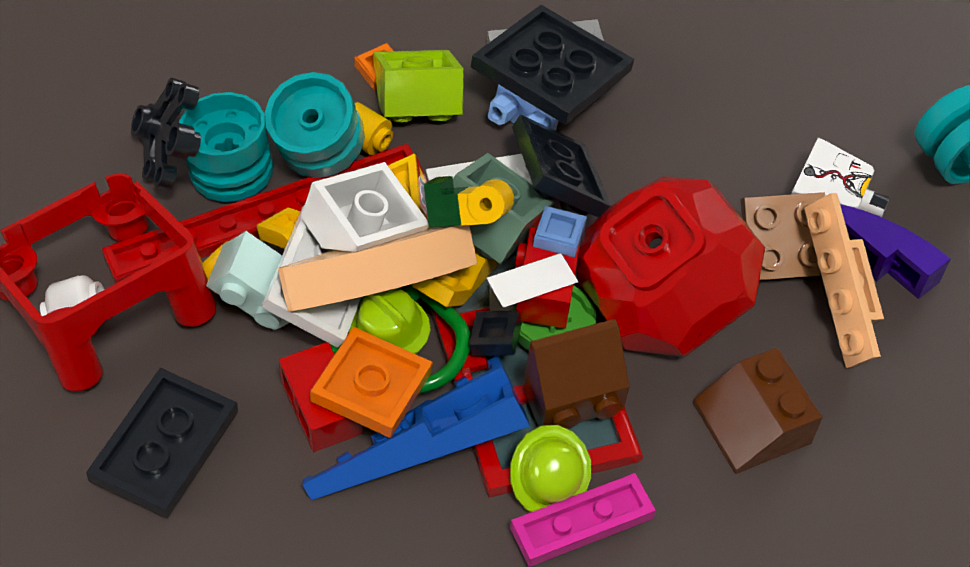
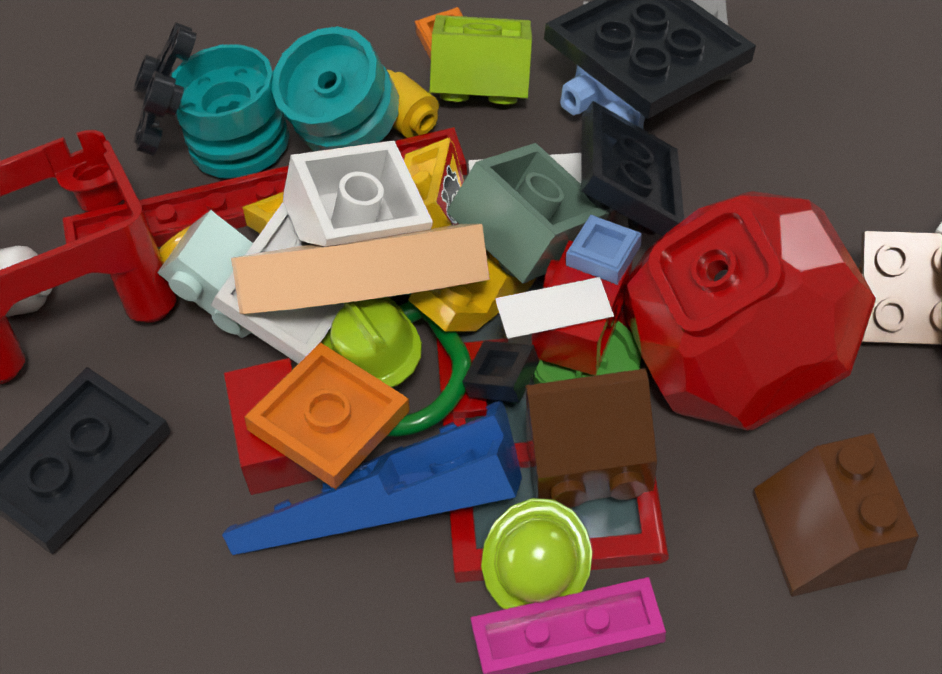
camera: 20 degrees right, 0 degrees up
(466, 204) = (470, 202): leg -> none

